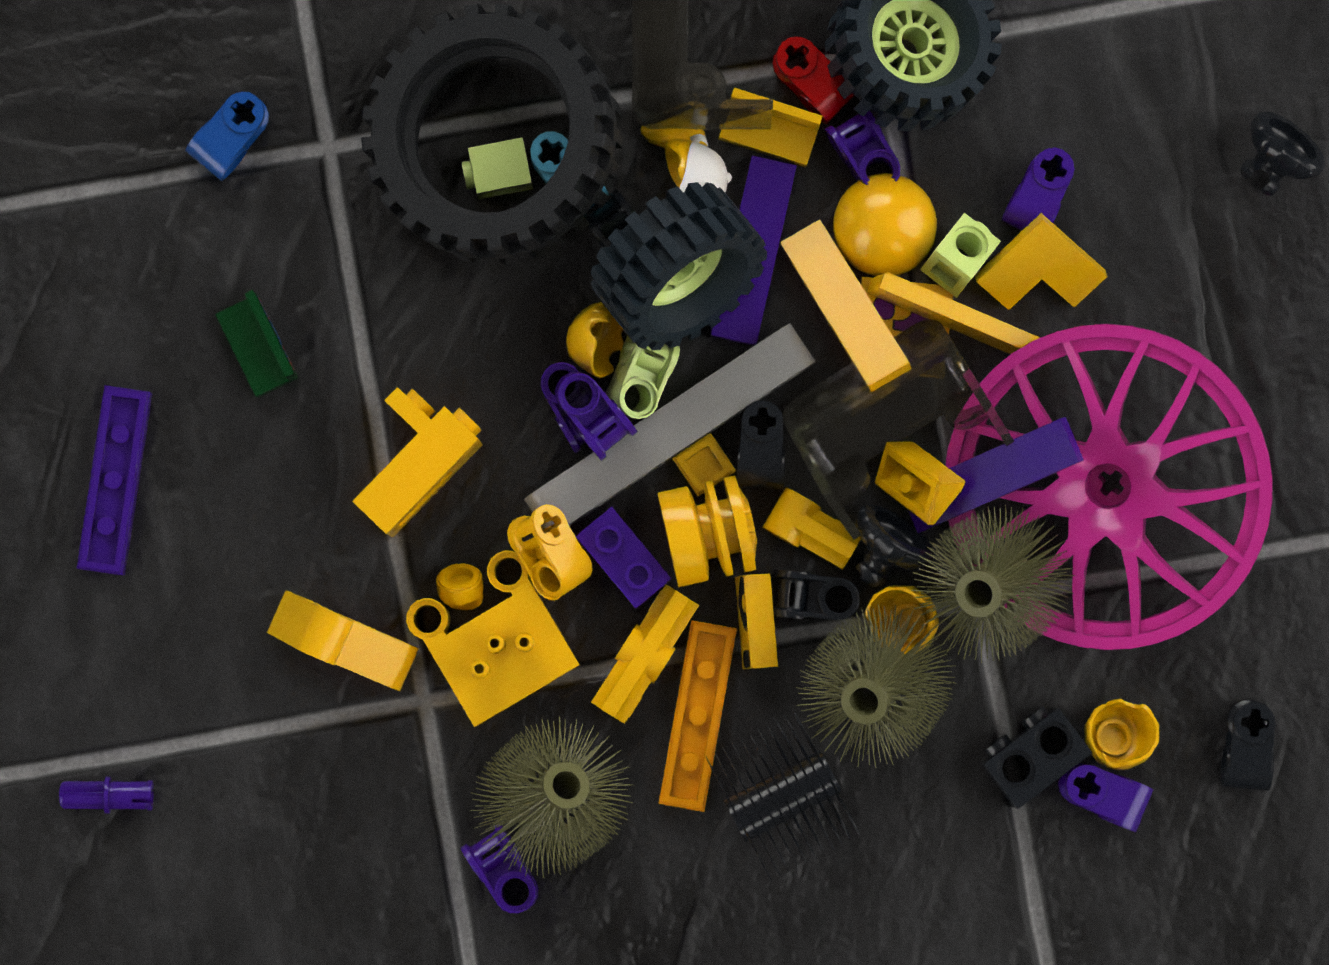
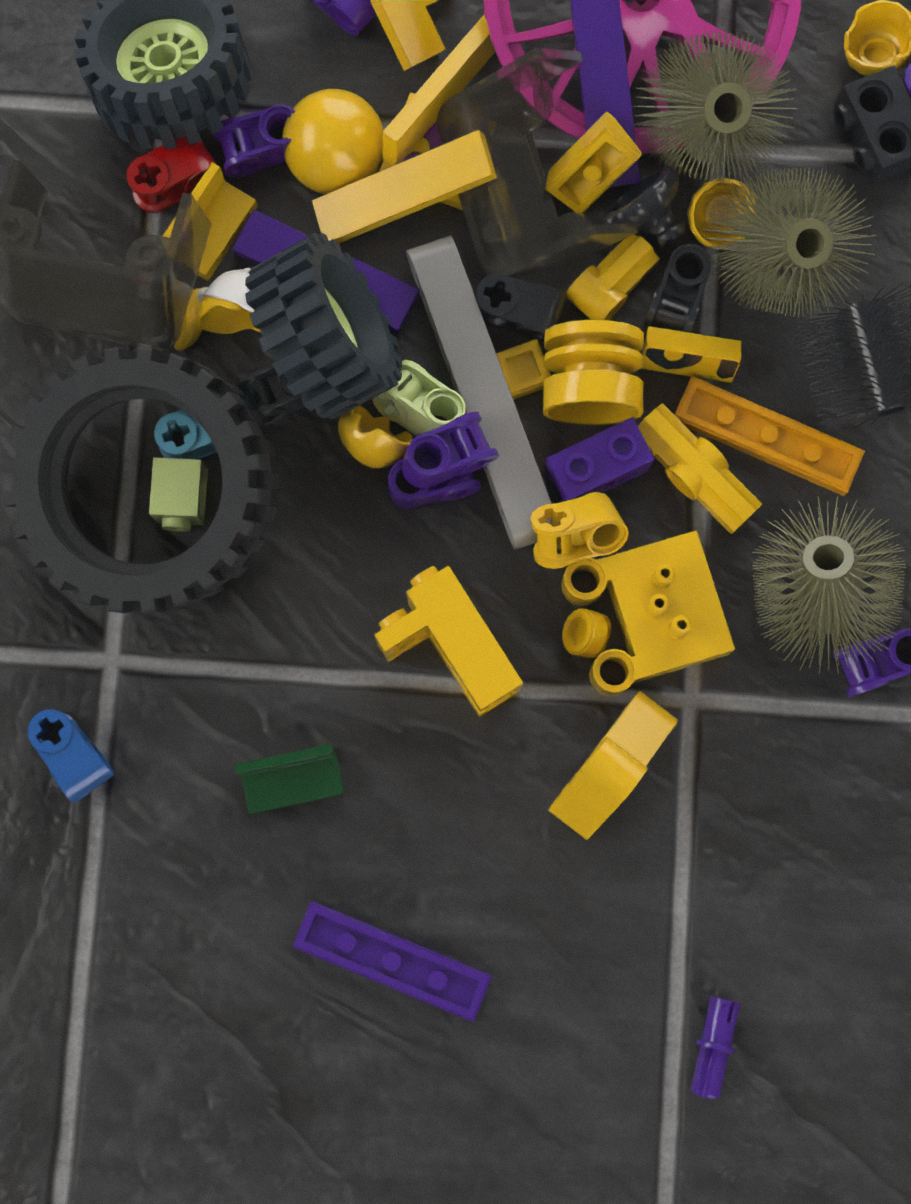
camera: 75 degrees left, 5 degrees down
(954, 269) = (382, 74): yellowish green brick -> none

